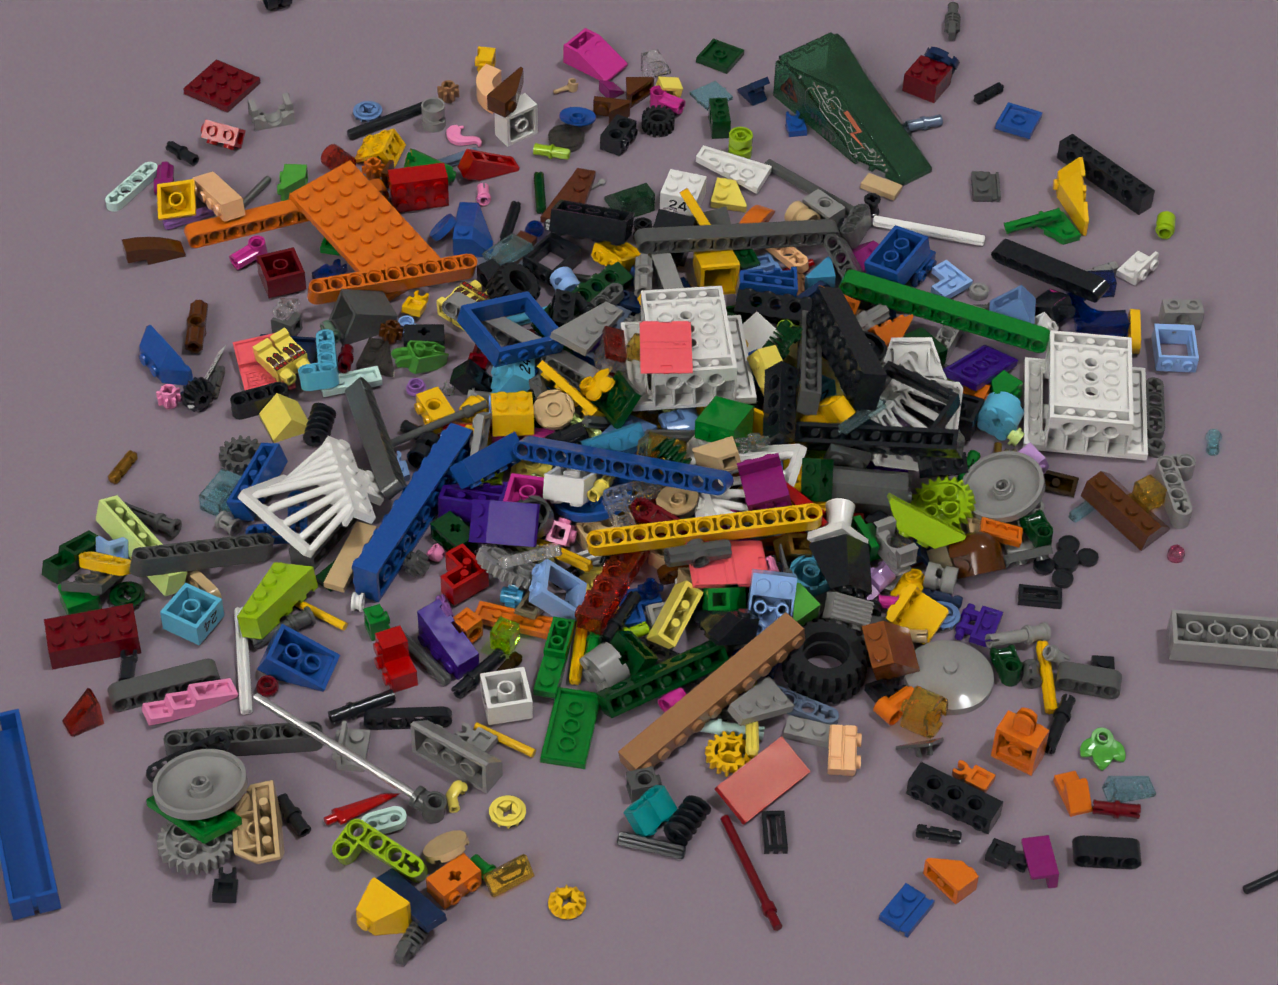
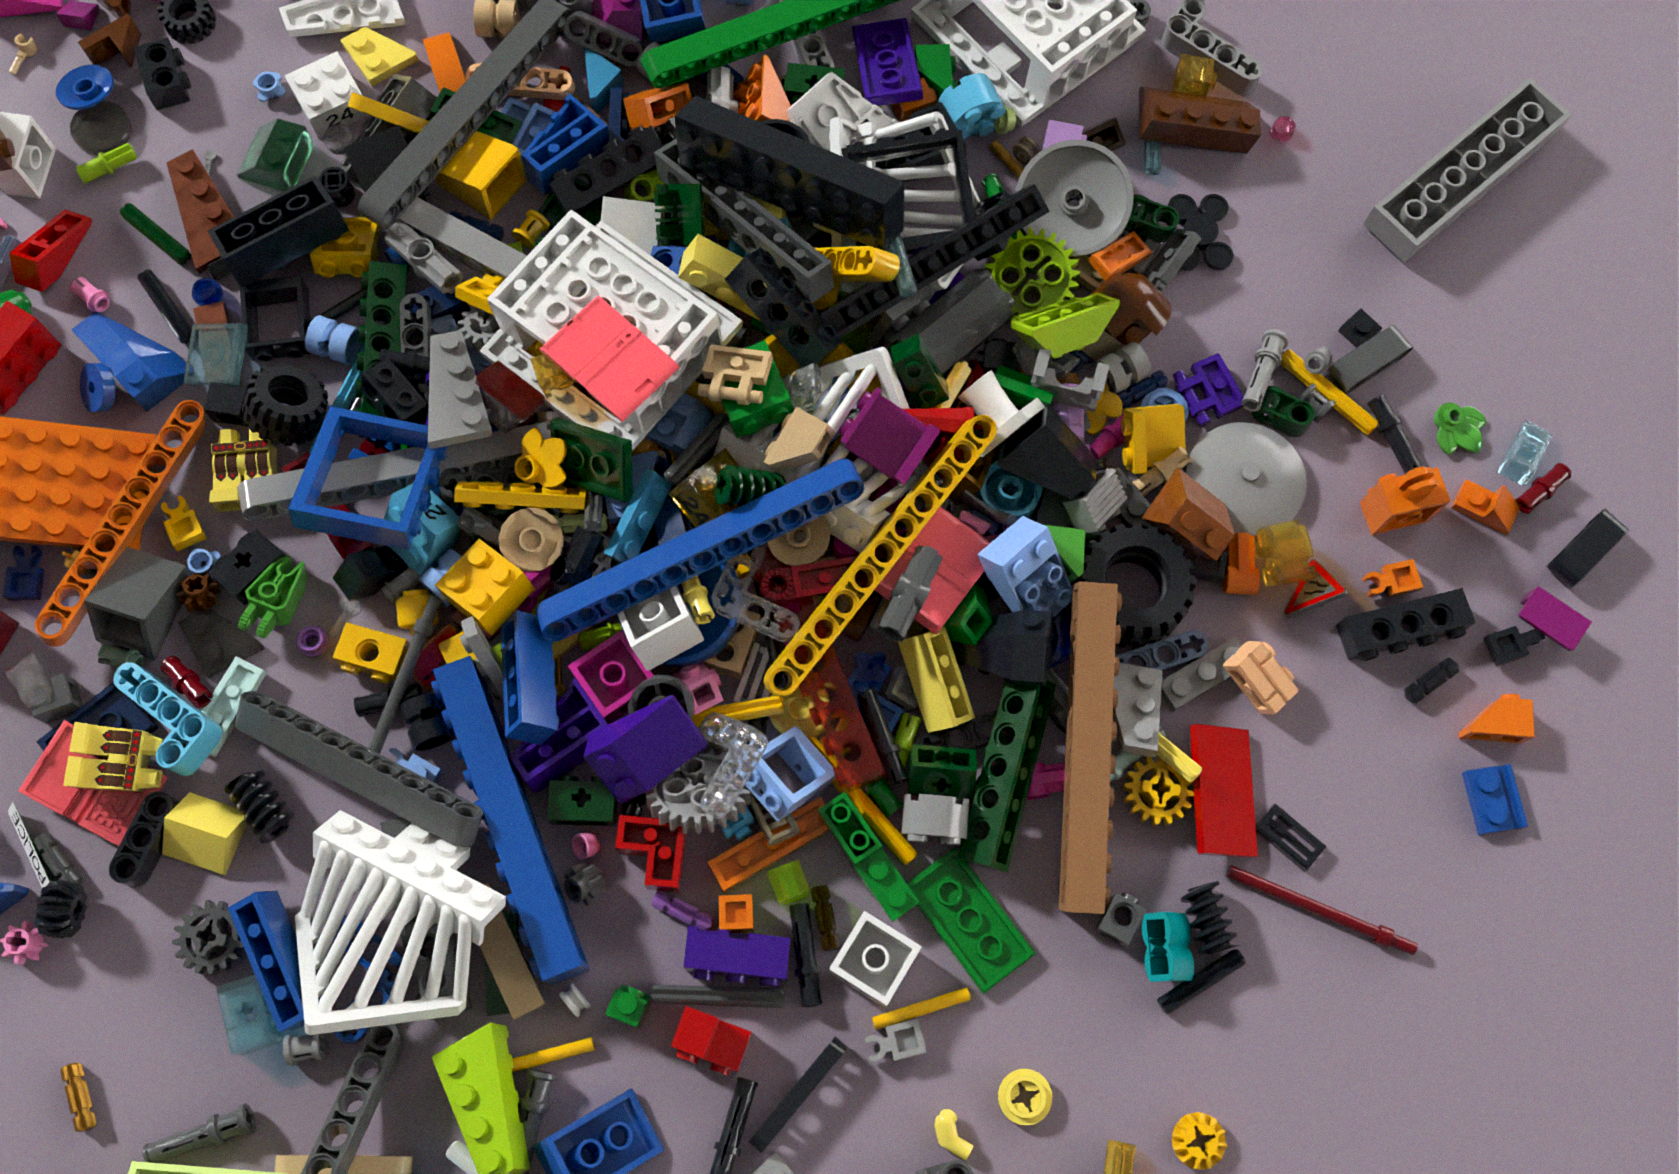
camera: 50 degrees left, 25 degrees up
(455, 755) = (905, 1087): light grey slope -> none
(660, 172) = (266, 80): none -> light blue plate
(723, 401) = (735, 365): none -> tan plate
(1040, 596) = (1204, 312): black tile -> none

